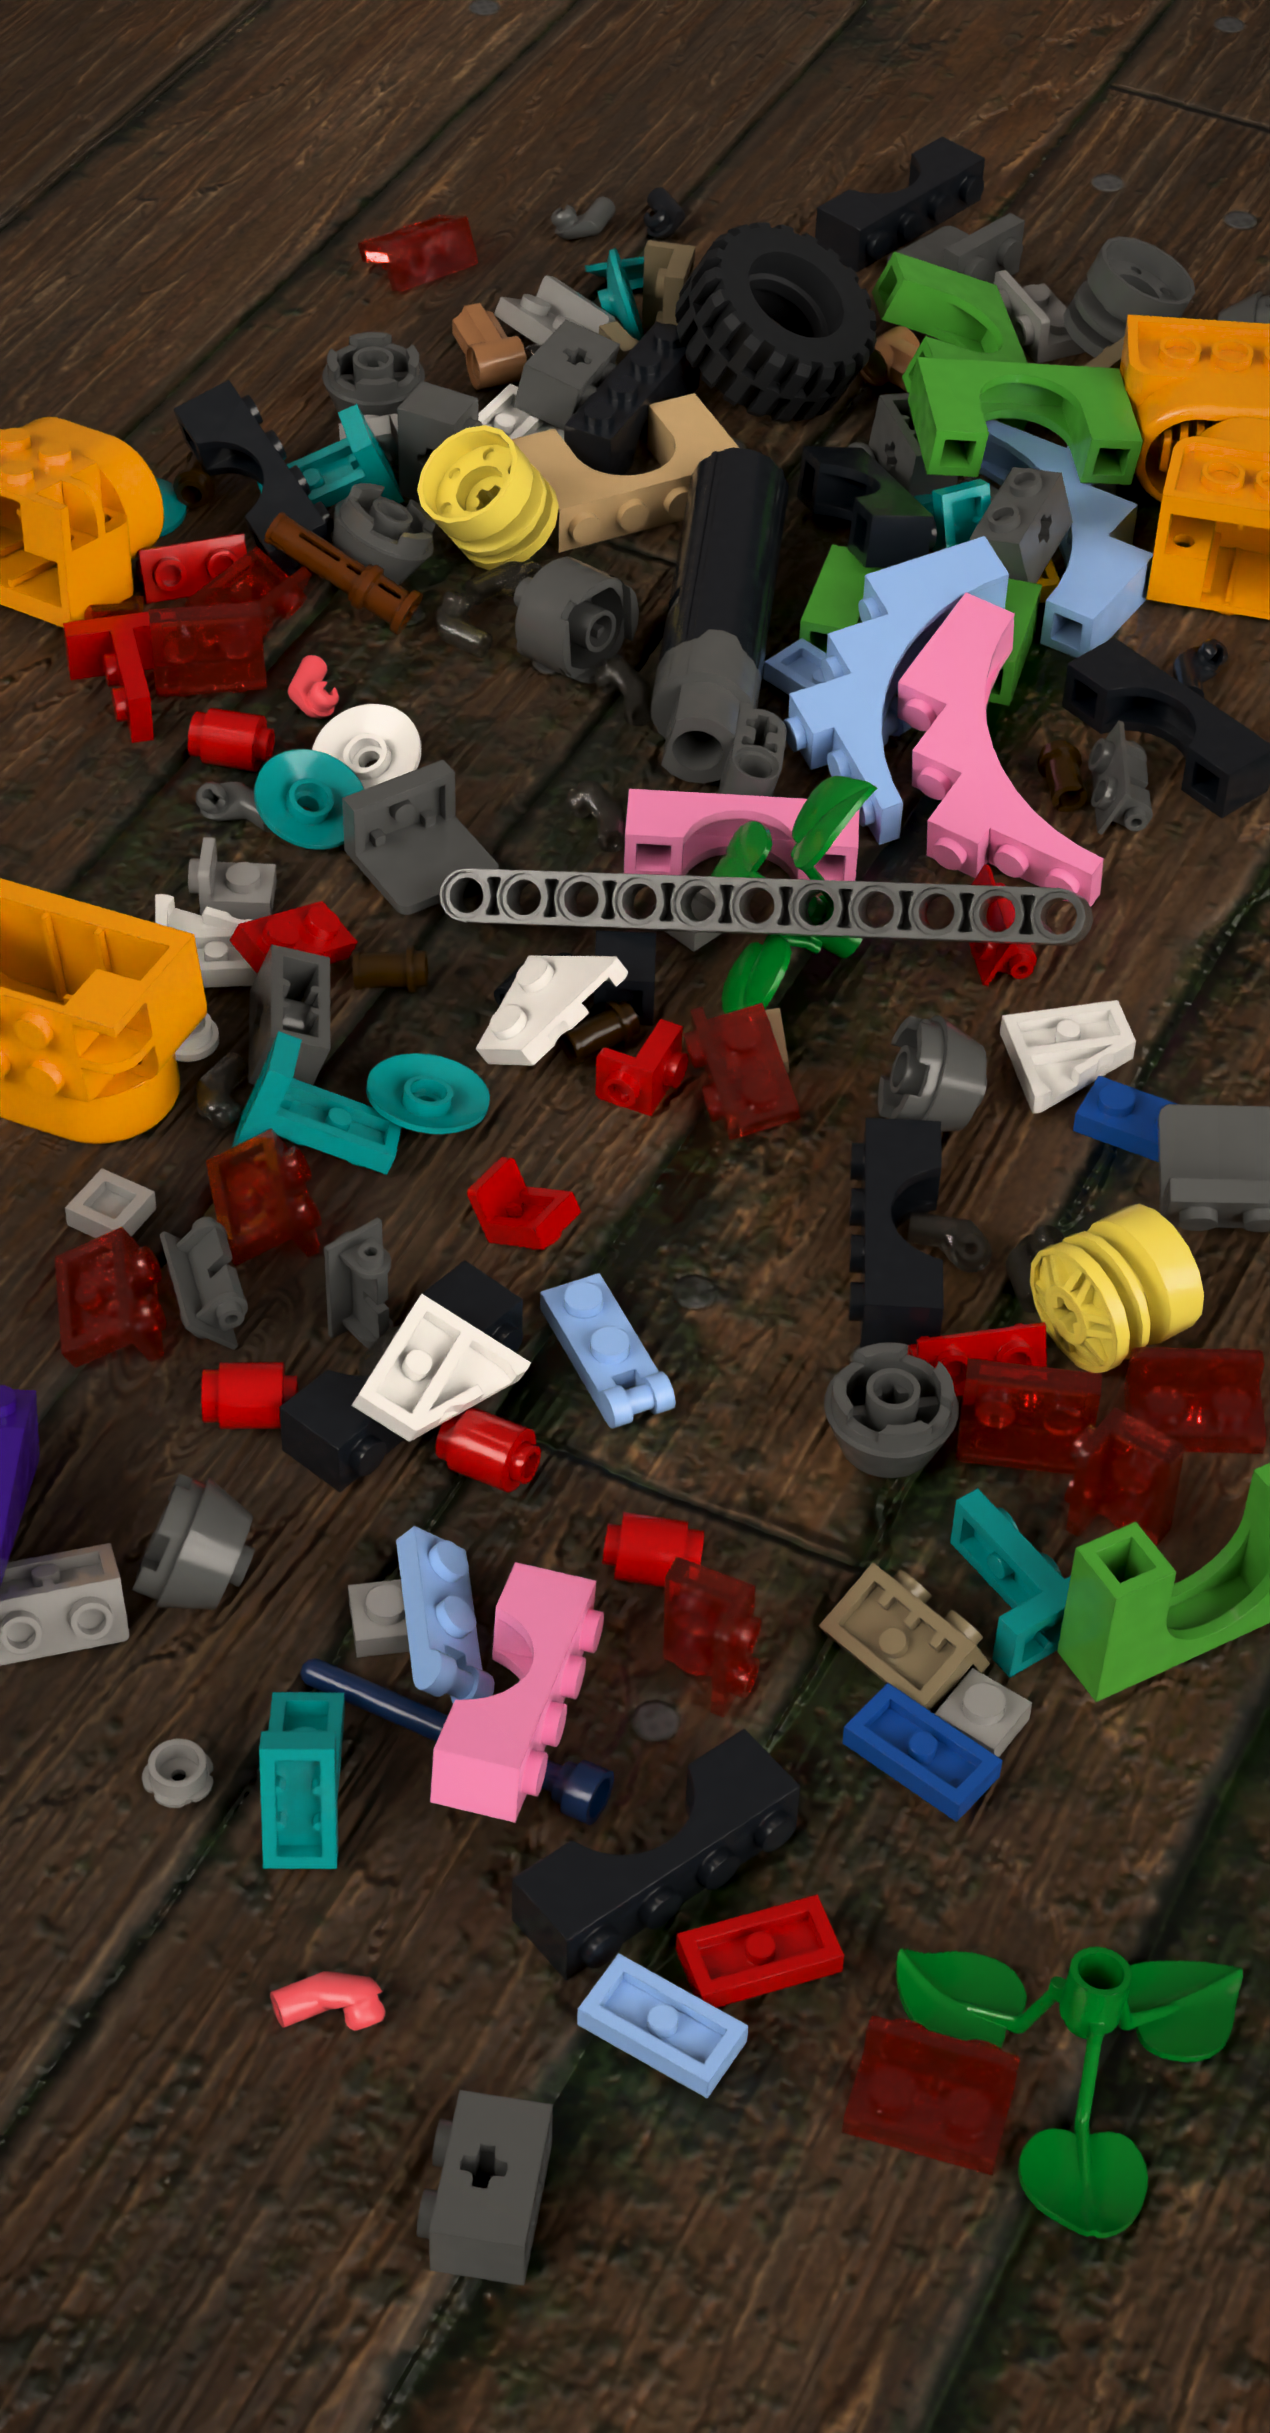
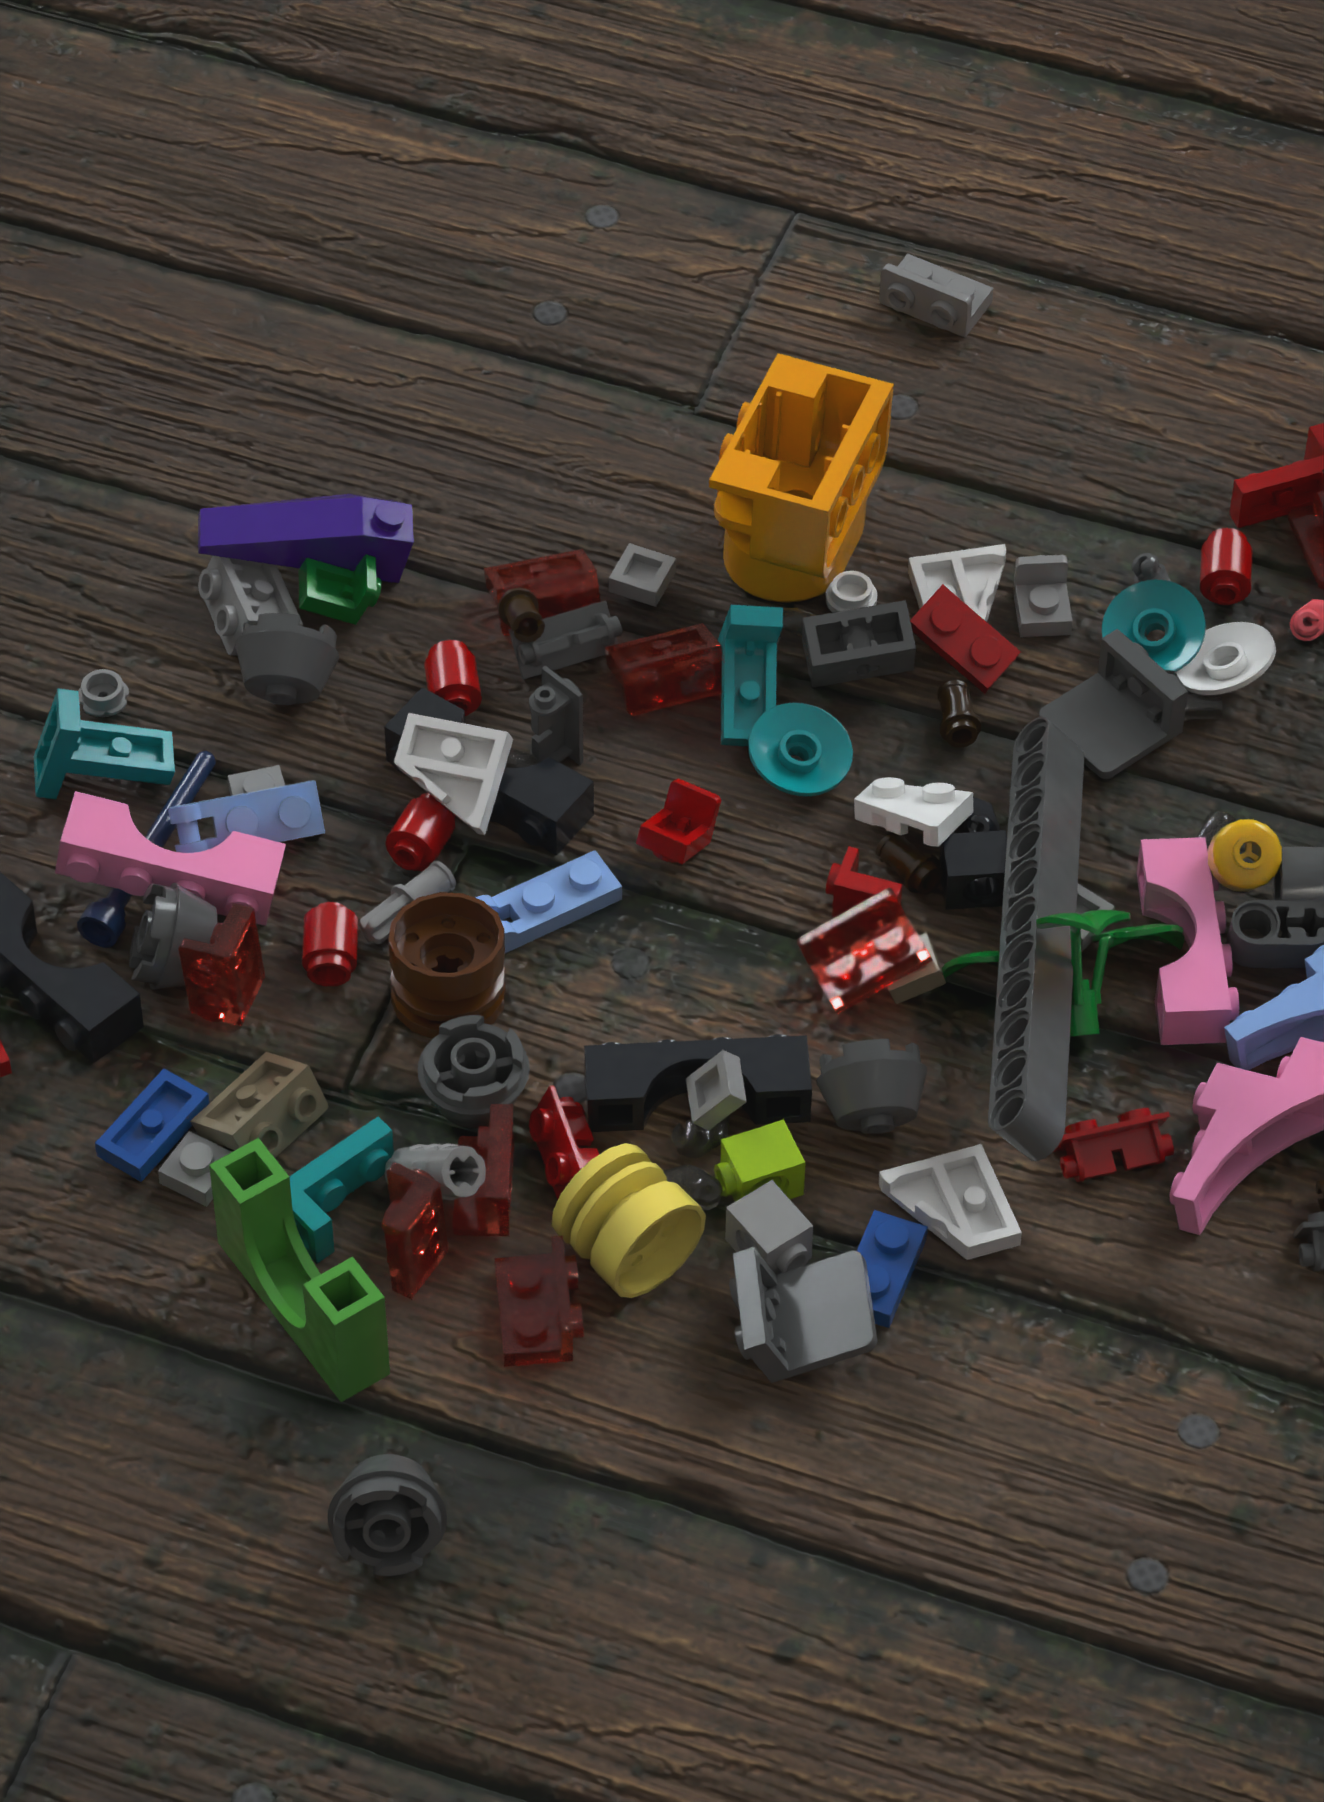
camera: 85 degrees right, 5 degrees up
(62, 1493) = (337, 590): none -> green bracket
(172, 1302) = (520, 611): none -> dark brown pin
(590, 1471) = (430, 881): none -> light grey axle
(648, 1697) = (156, 941): none -> dark grey cone
(677, 750) = (1228, 864): none -> yellow head
(731, 1418) = (446, 961): none -> reddish brown wheel
(937, 1198) = (716, 1090): none -> light grey plate
(1019, 1189) = (758, 1157): none -> lime brick
(1040, 1452) = (453, 1166): none -> light grey axle
(1106, 1184) = (771, 1226): none -> light grey brick

